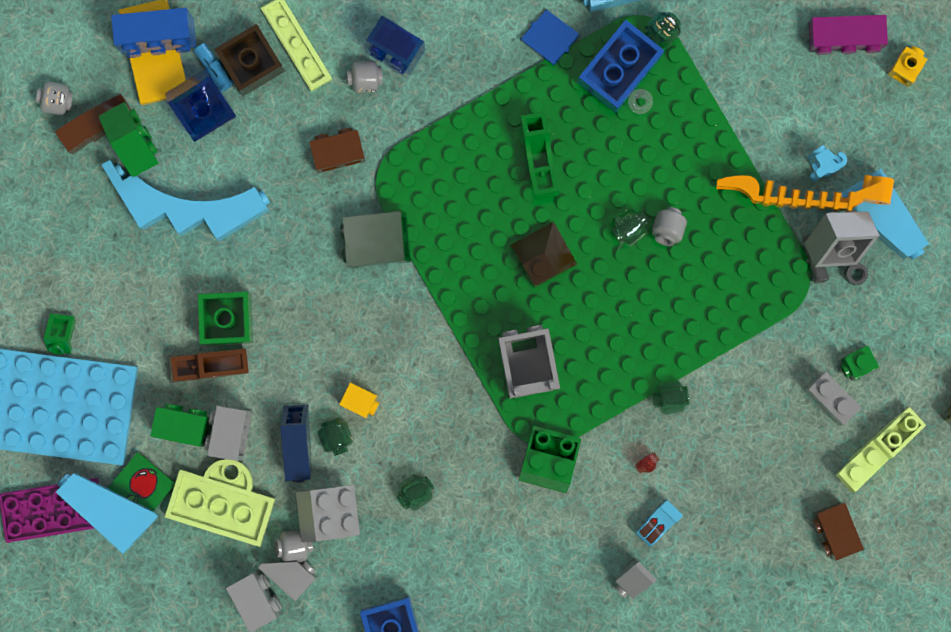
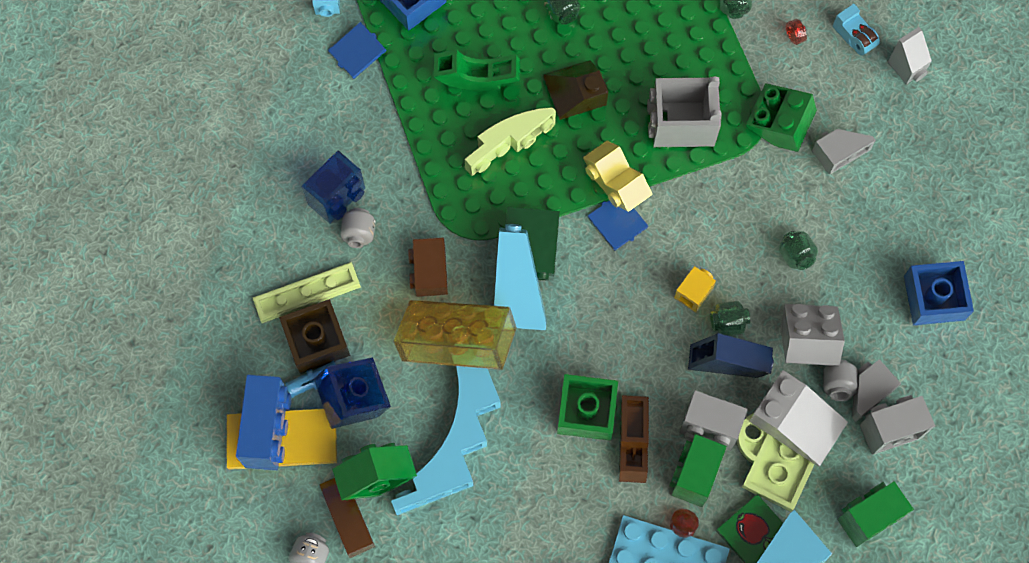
camera: 80 degrees left, 15 degrees down
(138, 422) = (684, 523): none -> clear red tile
(169, 588) = (878, 511): none -> green brick
(245, 511) = (799, 418): none -> slope
(267, 186) = (455, 334): none -> clear yellow brick
(327, 234) = (517, 279): none -> medium azure slope
(417, 318) = (617, 224): none -> blue piece
(454, 309) = (611, 171): none -> light yellow brick
(485, 207) = (517, 131): none -> yellowish green slope
(527, 520) = (840, 148): none -> light grey slope

